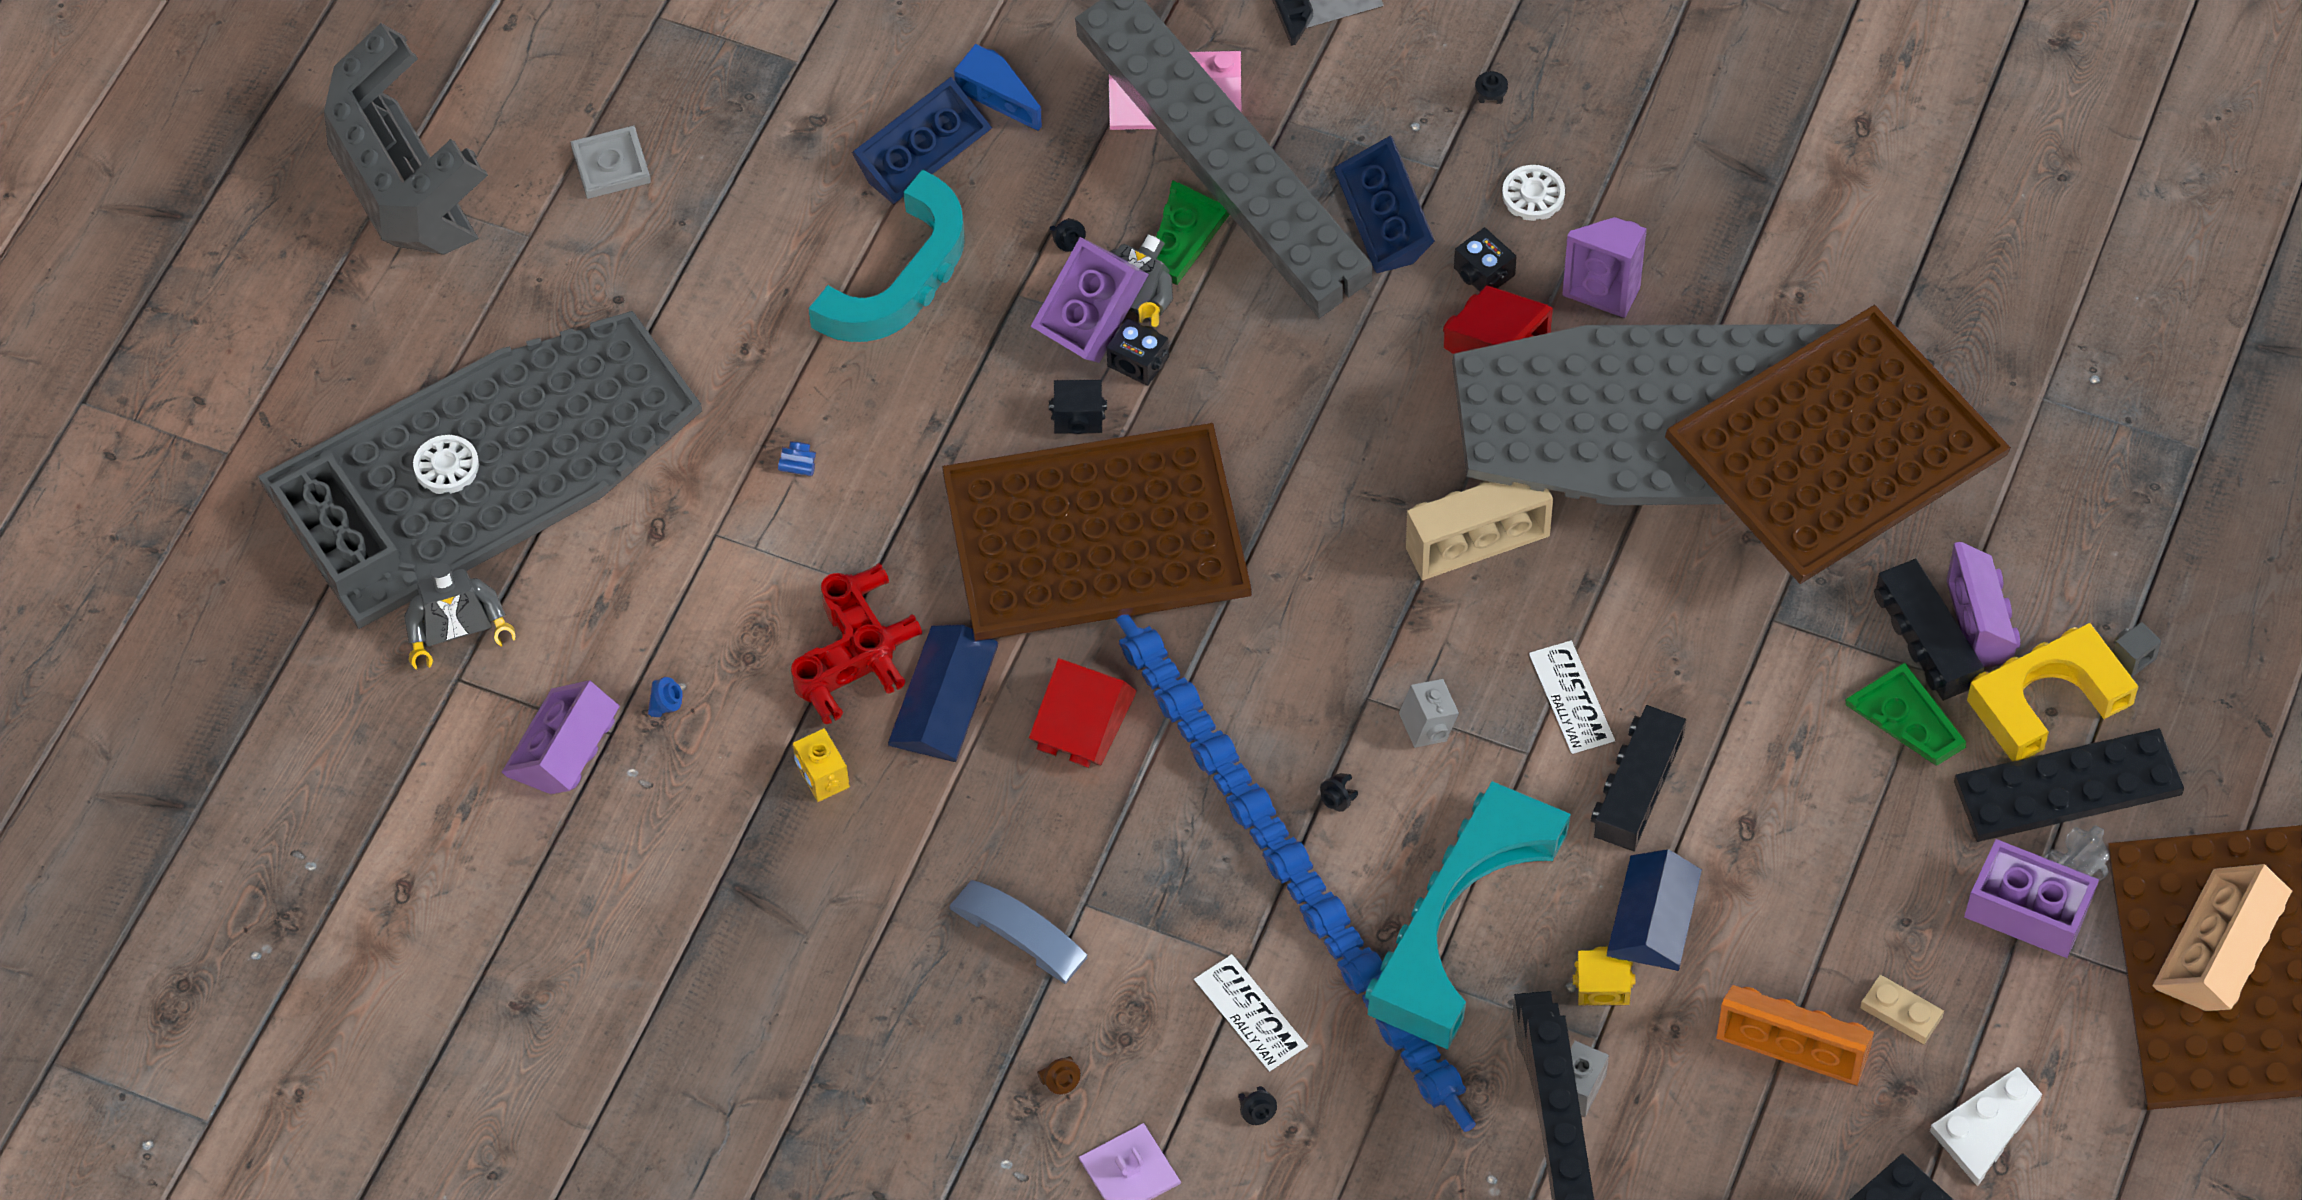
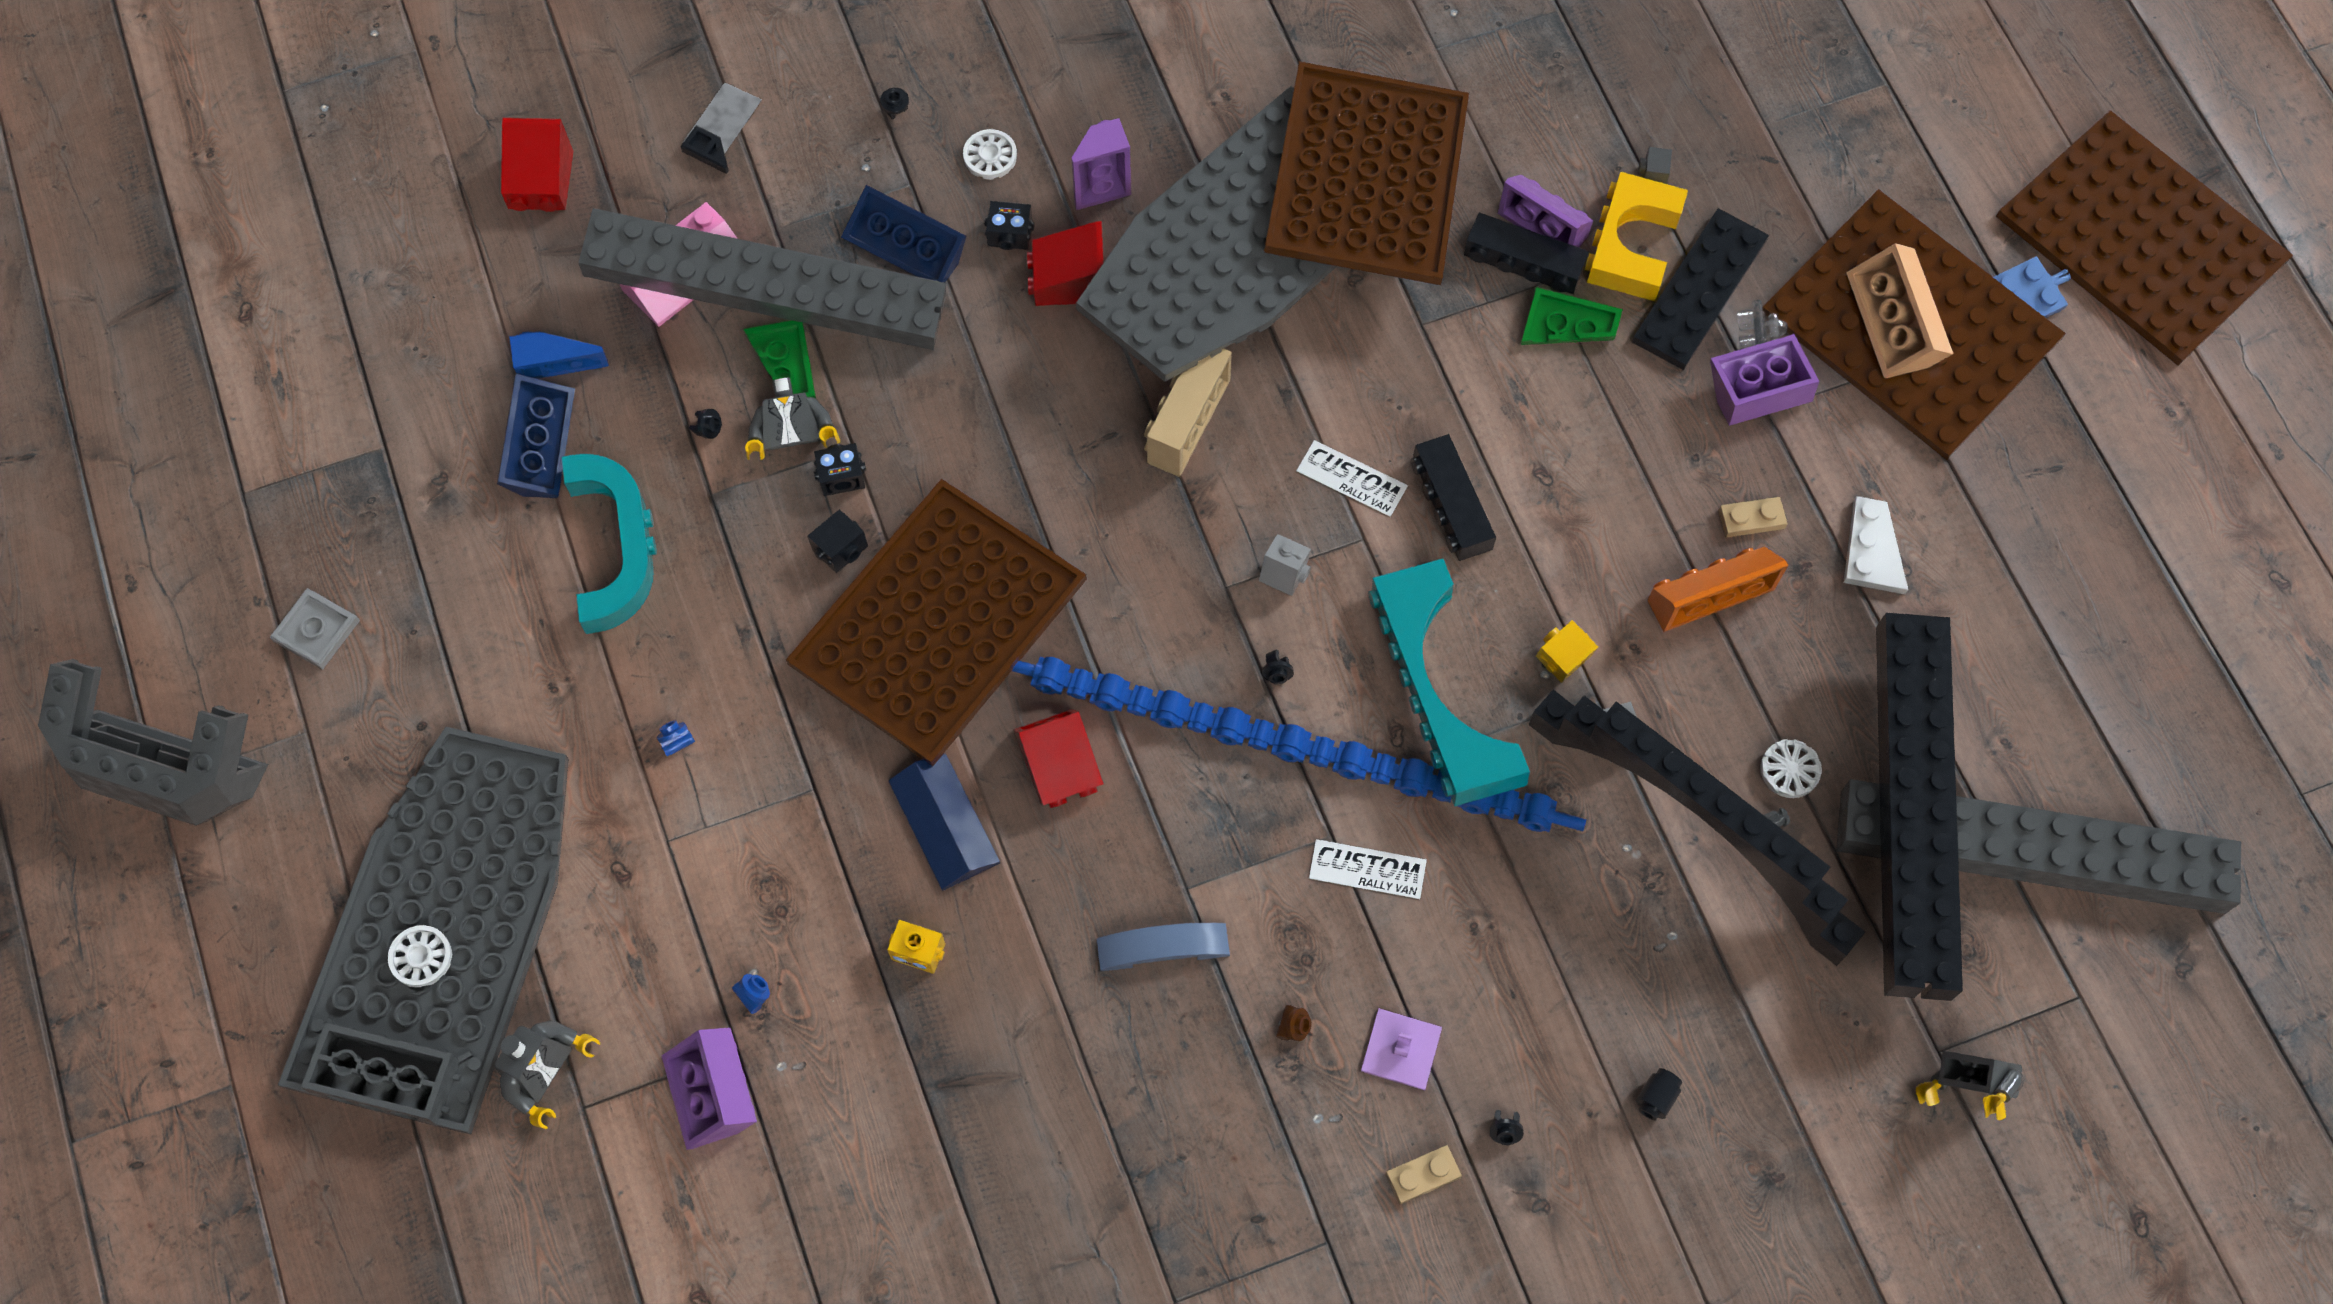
camera: 45 degrees left, 10 degrees up
(848, 658) = (857, 852): red pin -> none
(1089, 300) = (779, 459): medium lavender slope -> none
(1257, 1106) = (1444, 933): black plate -> none
(1655, 909) = (1554, 579): dark blue slope -> none

